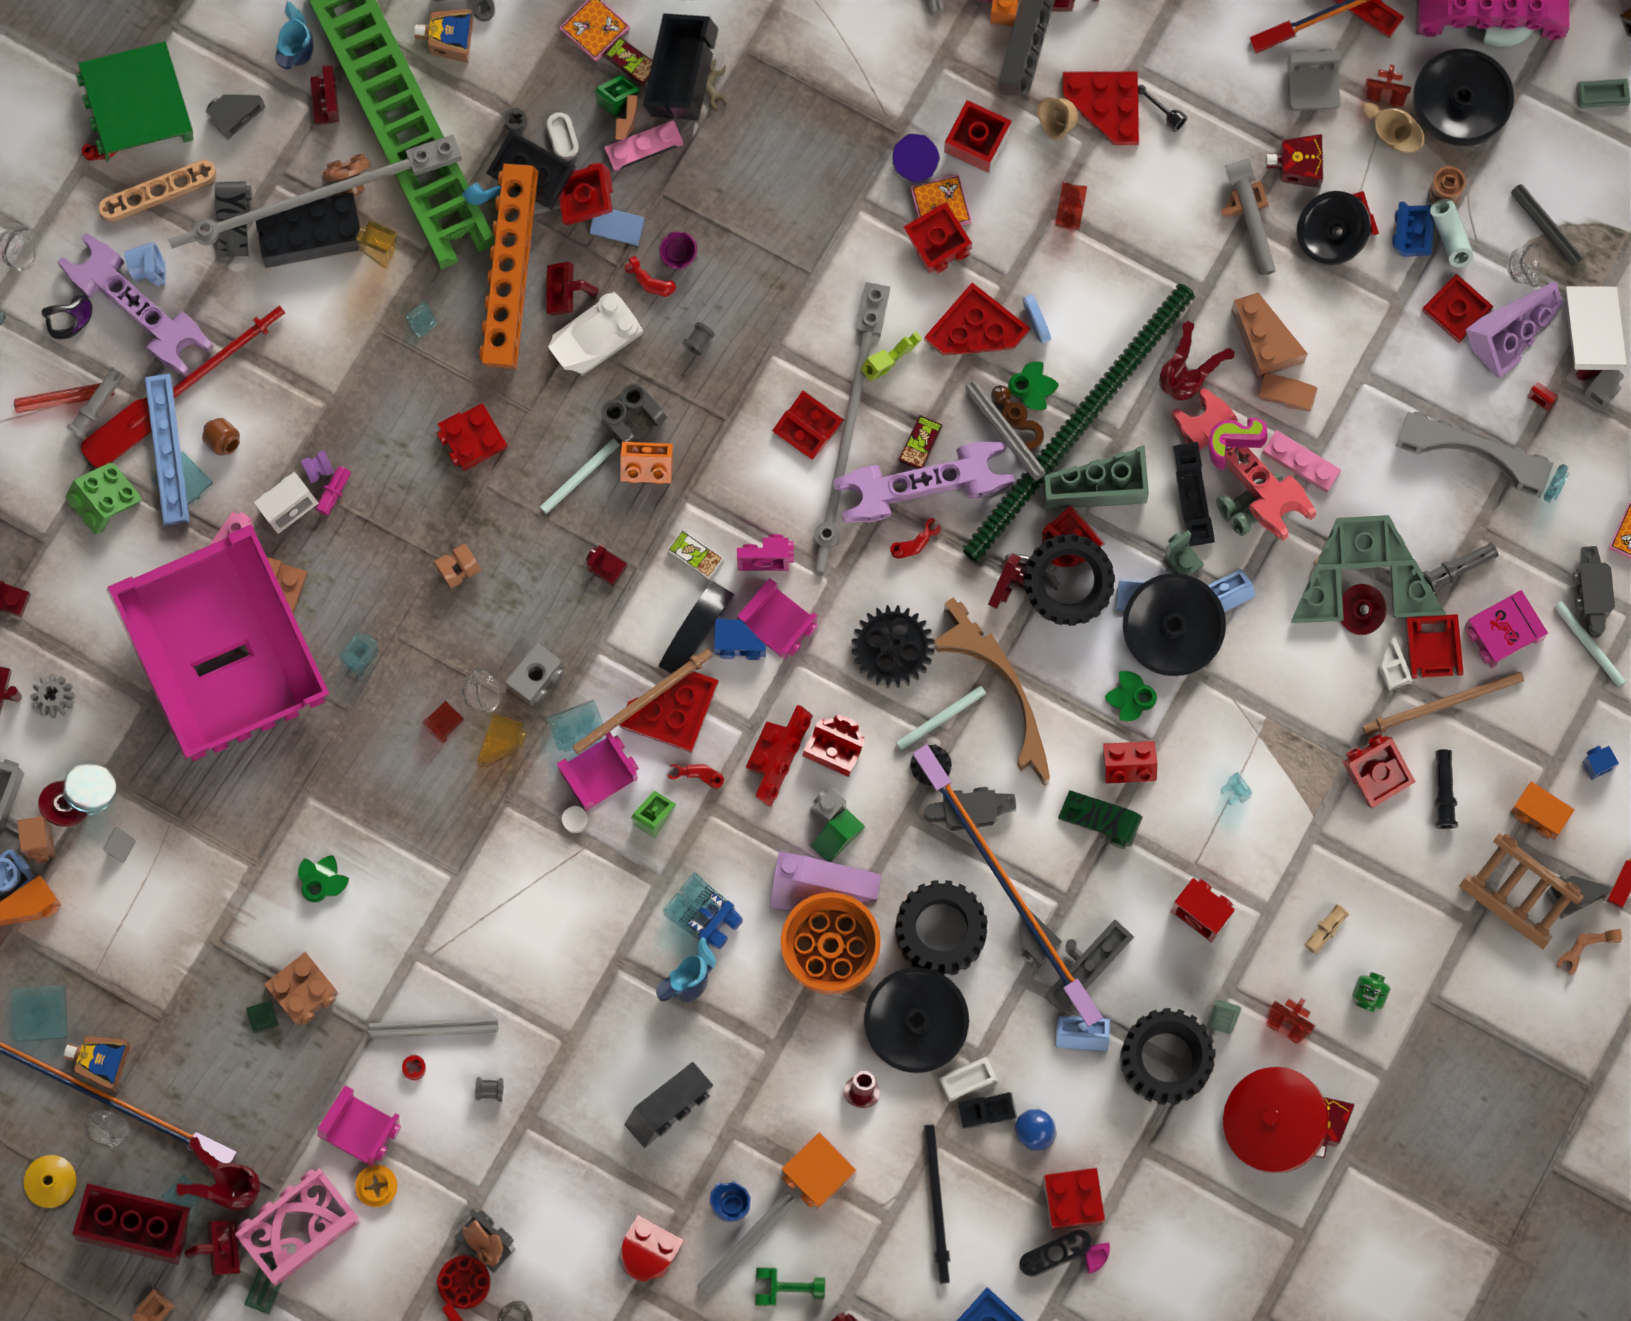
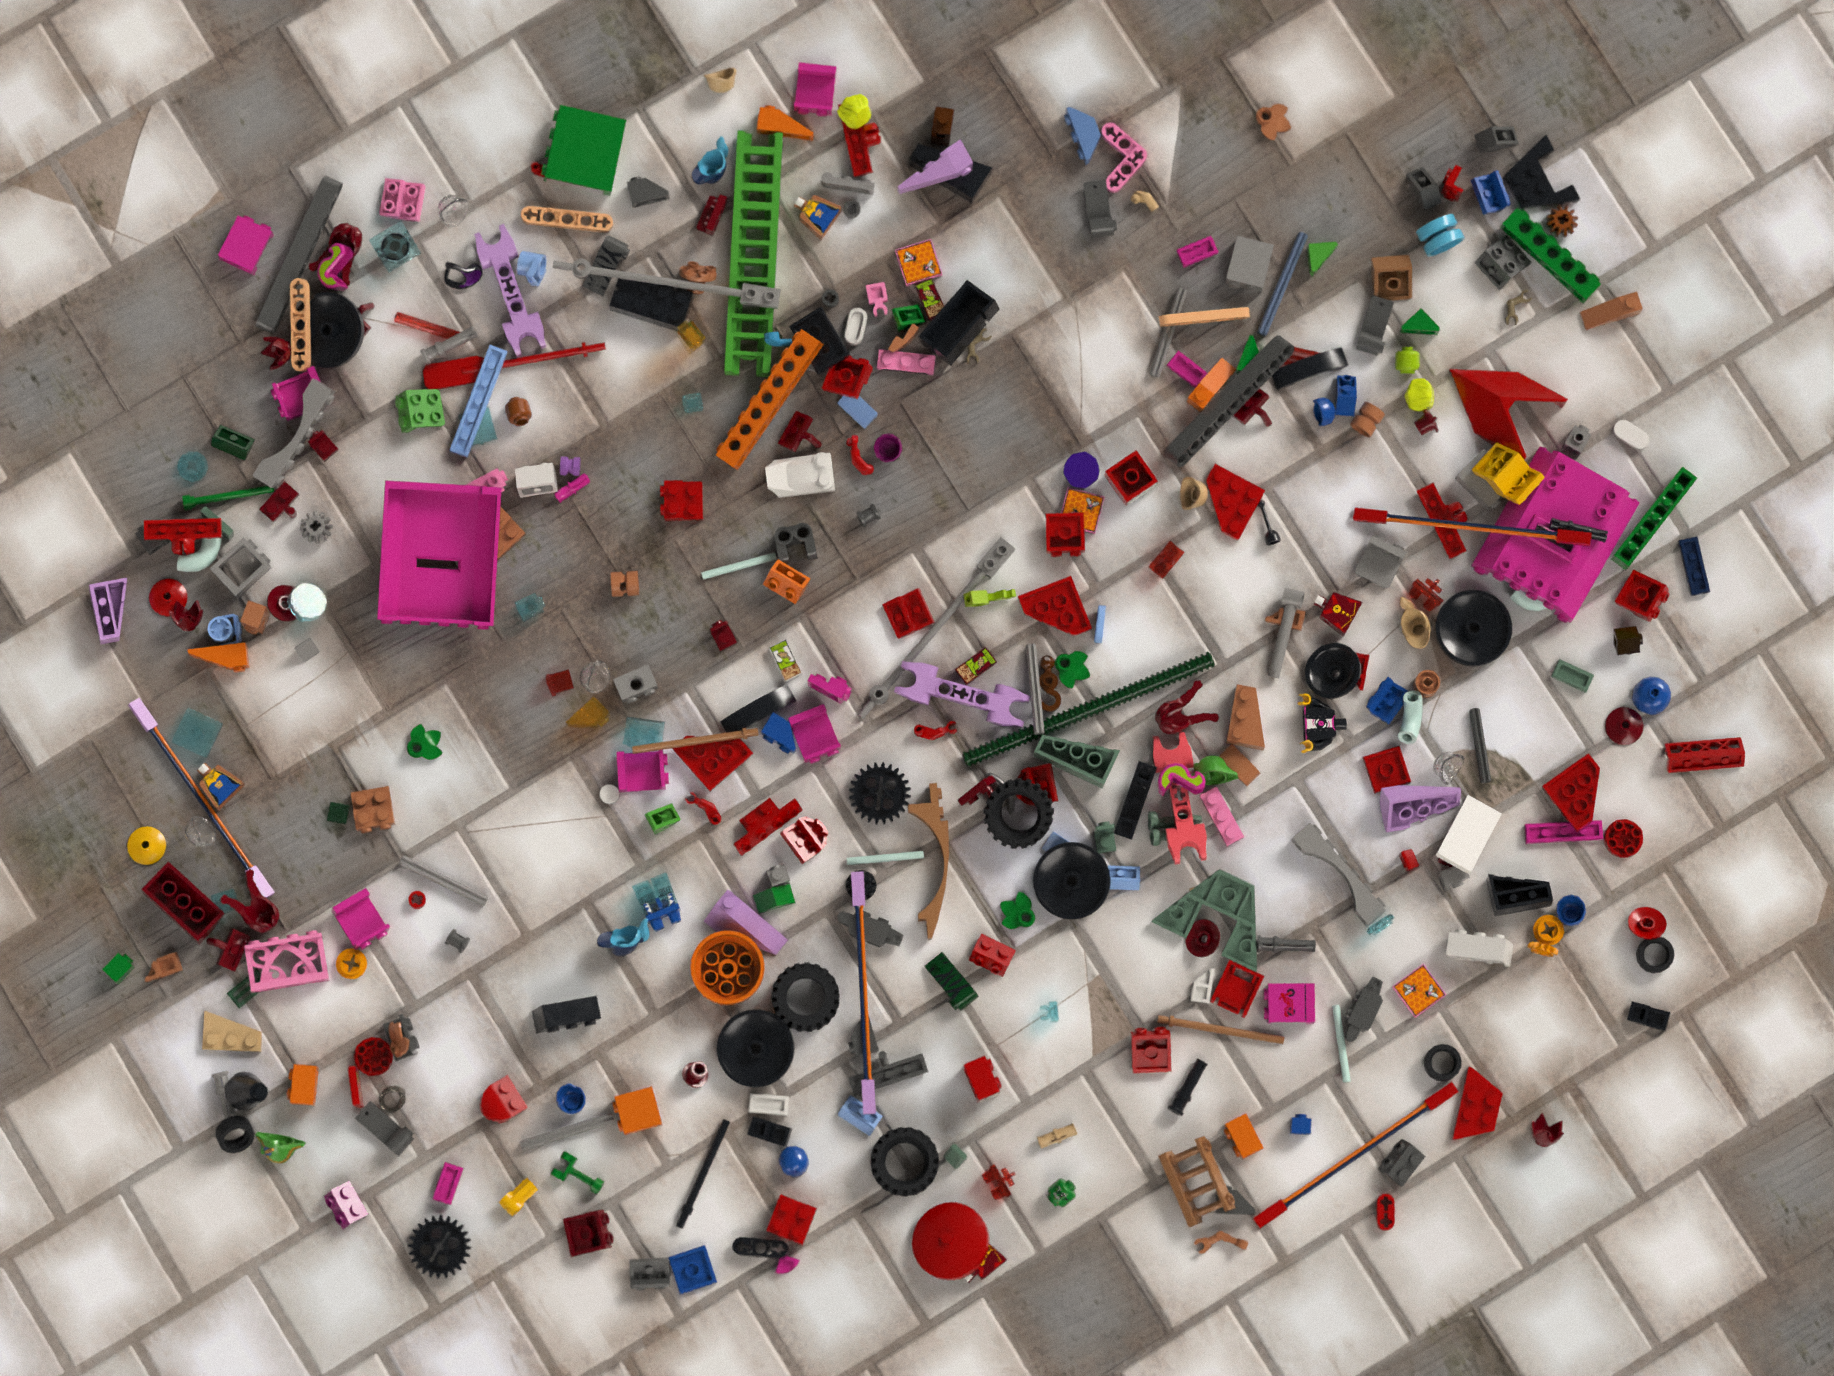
camera: 25 degrees right, 5 degrees up
(568, 89) = (877, 295): none -> bright pink plate
(1268, 409) = (1215, 770): none -> bright green hat
(1351, 296) = (1319, 724): none -> torso

